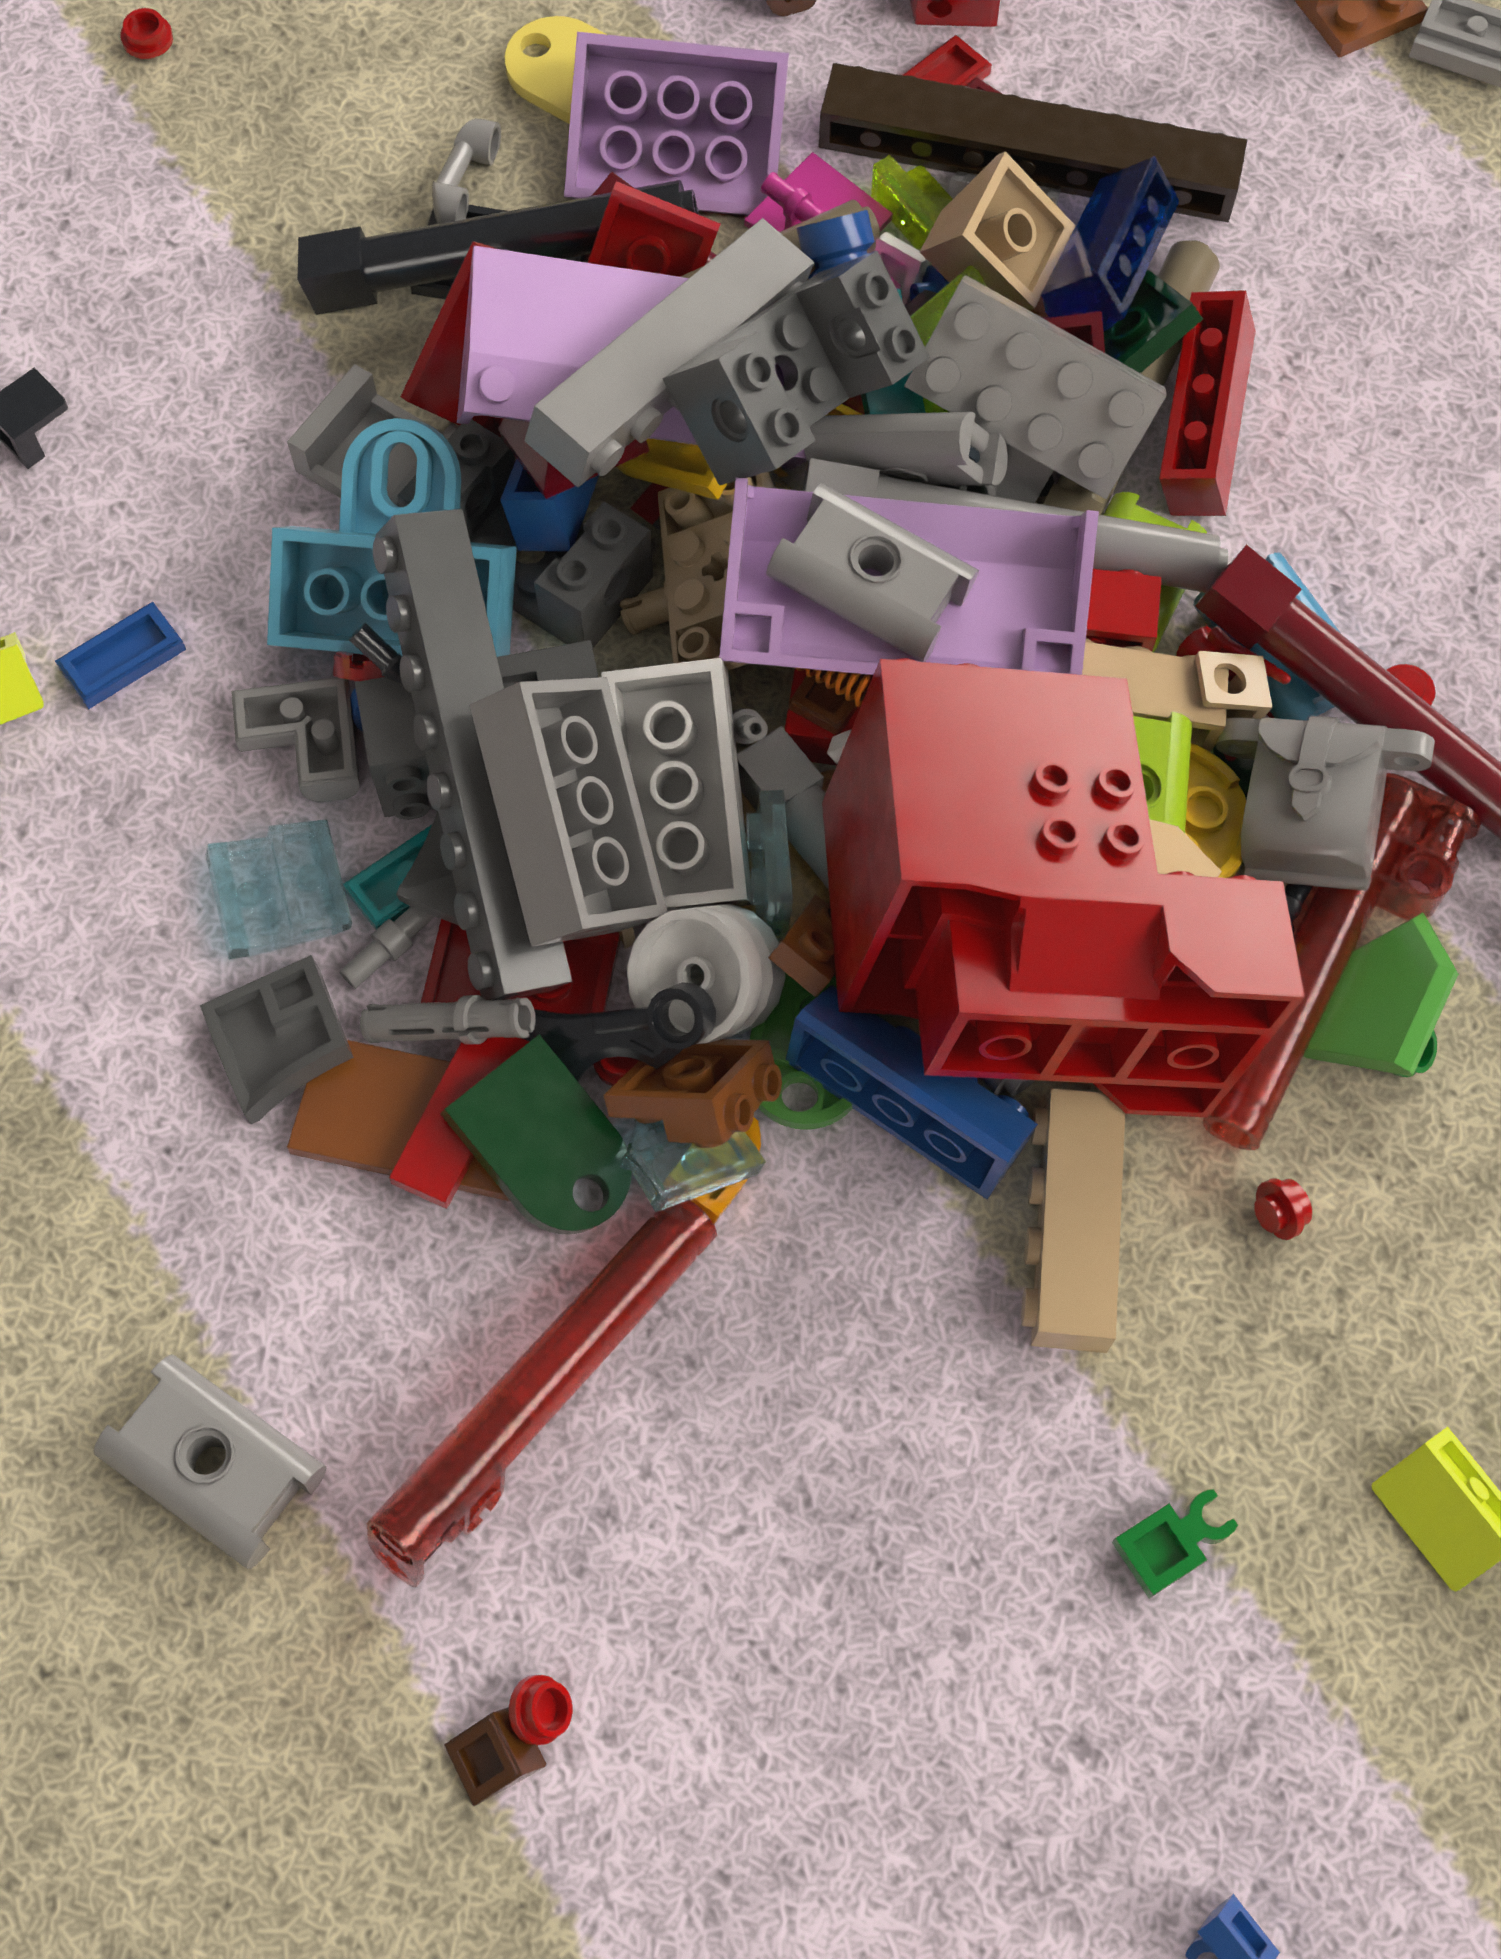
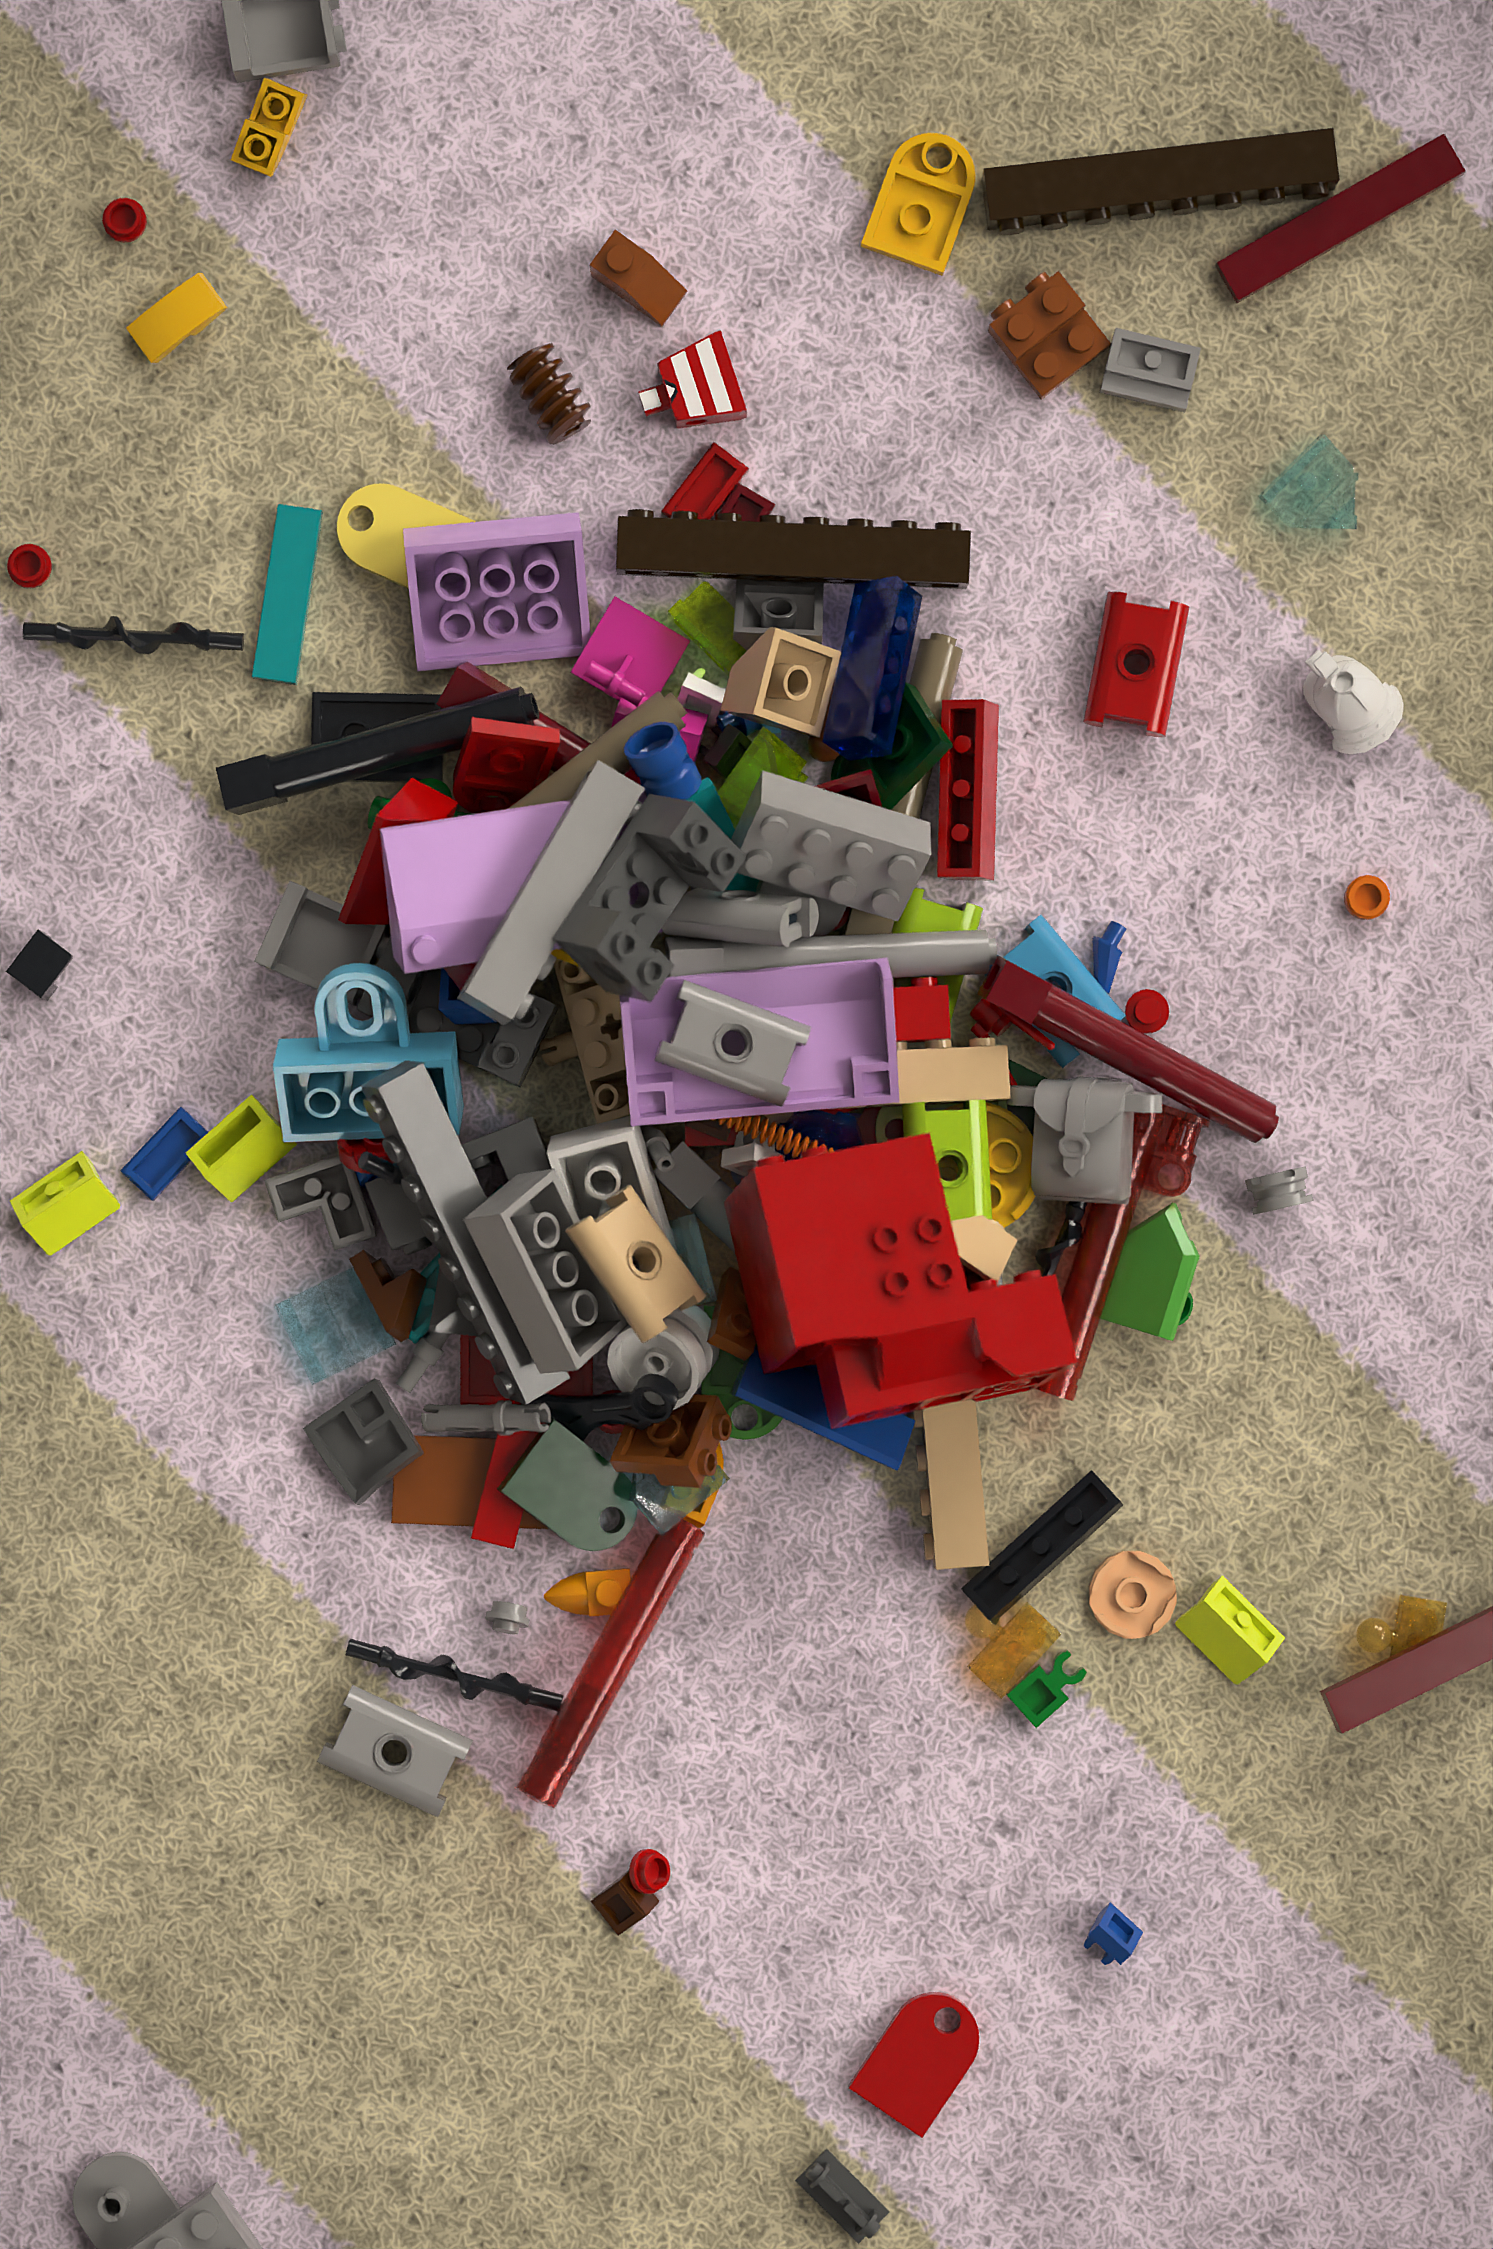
camera: 10 degrees left, 20 degrees up
(213, 658) = (240, 1149): none -> neon yellow brick
(257, 123) = (140, 641): none -> black piece
(341, 1388) = (446, 1668): none -> black piece
(362, 850) = (392, 1298): none -> reddish brown slope
(416, 1301) = (507, 1617): none -> light grey plate
(431, 107) = (287, 594): none -> teal tile
(475, 142) = (333, 632): light grey bar -> none
(535, 1293) = (589, 1591): none -> light orange plate
(691, 817) = (608, 1249): none -> tan piece
(1130, 1476) = (1011, 1647): none -> clear yellow plate
(1191, 1337) = (1042, 1546): none -> black plate
(1248, 690) = (1024, 1060): tan bracket -> none
(1282, 1207) = (1094, 1442): red plate -> none
(1296, 1448) = (1120, 1597): none -> light nougat tile
(1360, 614) = (1107, 955): none -> blue bar
(1429, 315) = (1141, 631): none -> red piece

